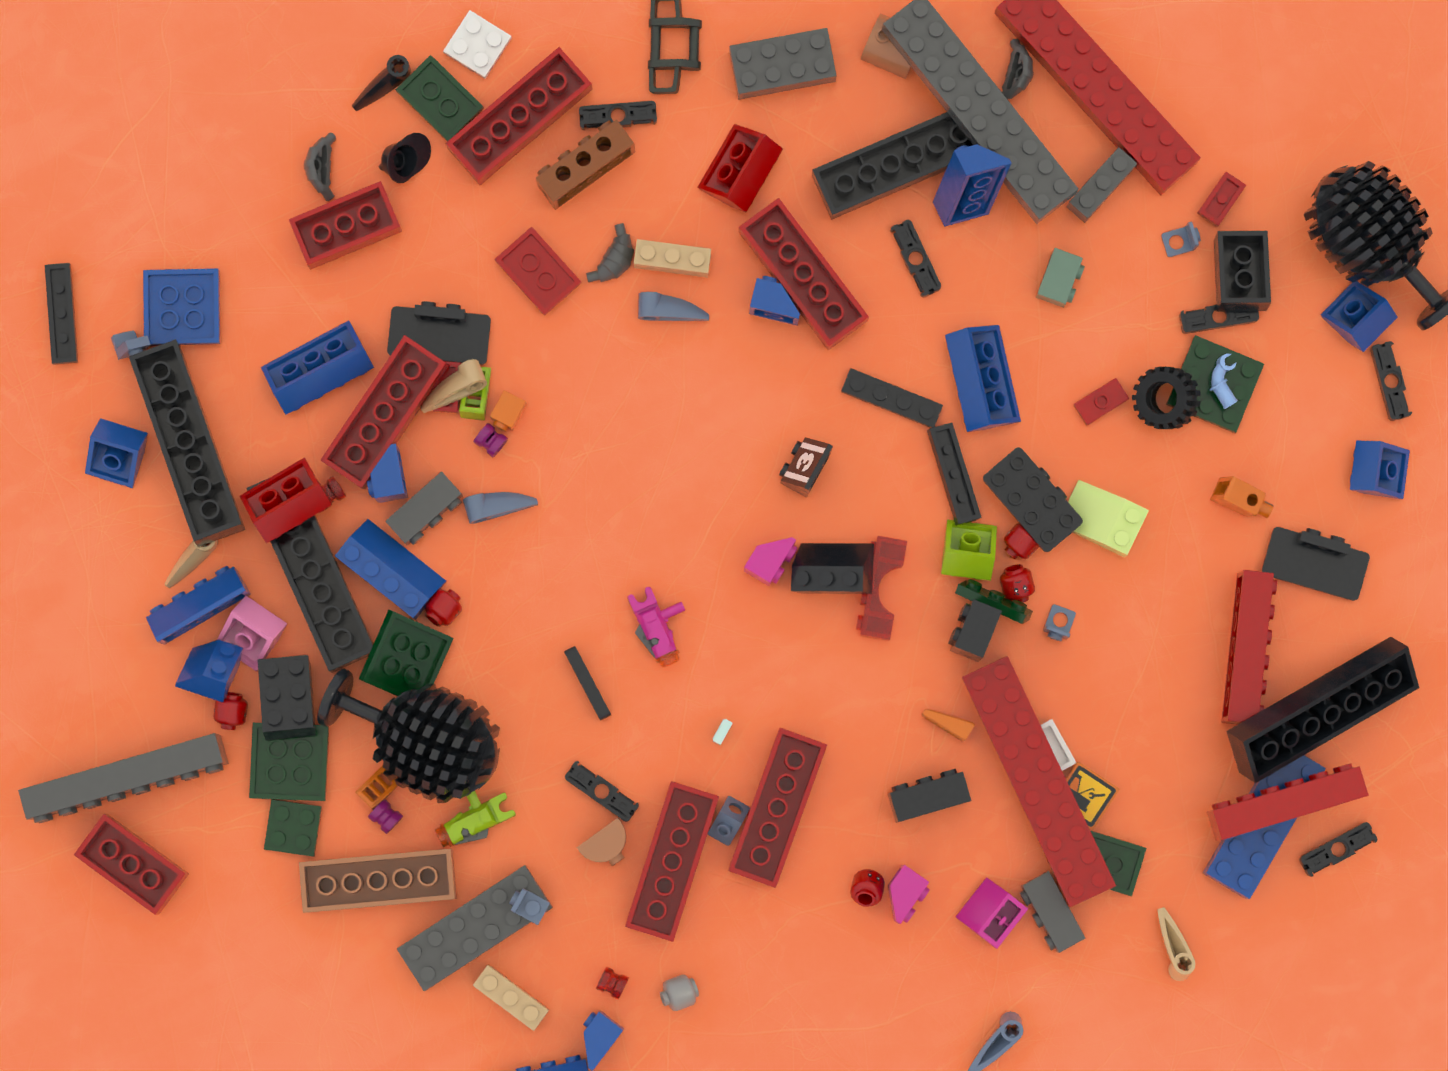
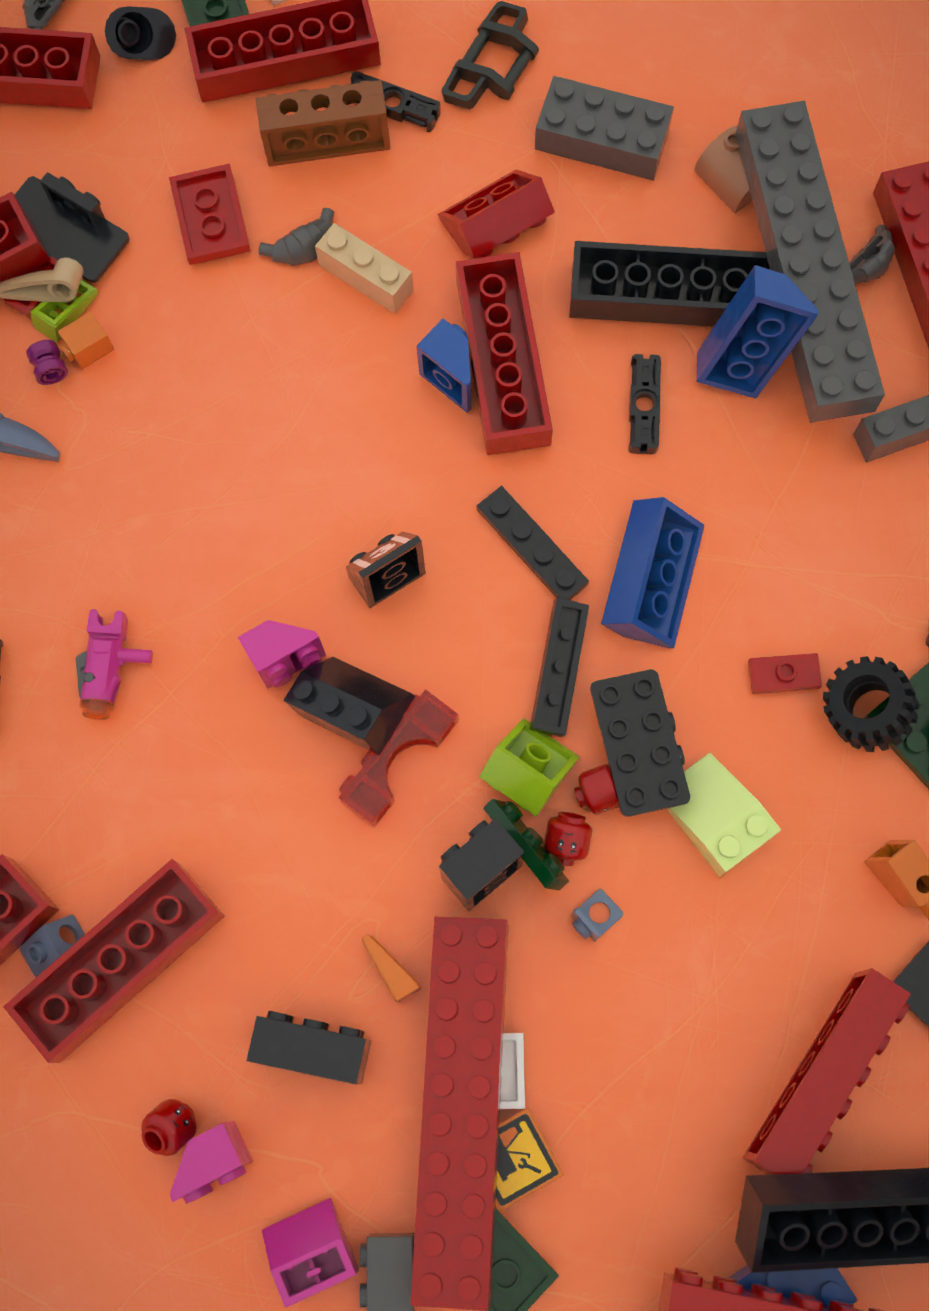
camera: 35 degrees right, 10 degrees down
(659, 307) = (325, 319): sand blue piece -> none
(722, 731) = (107, 830): light aqua tile -> none
(1060, 277) = (805, 504): sand green brick -> none

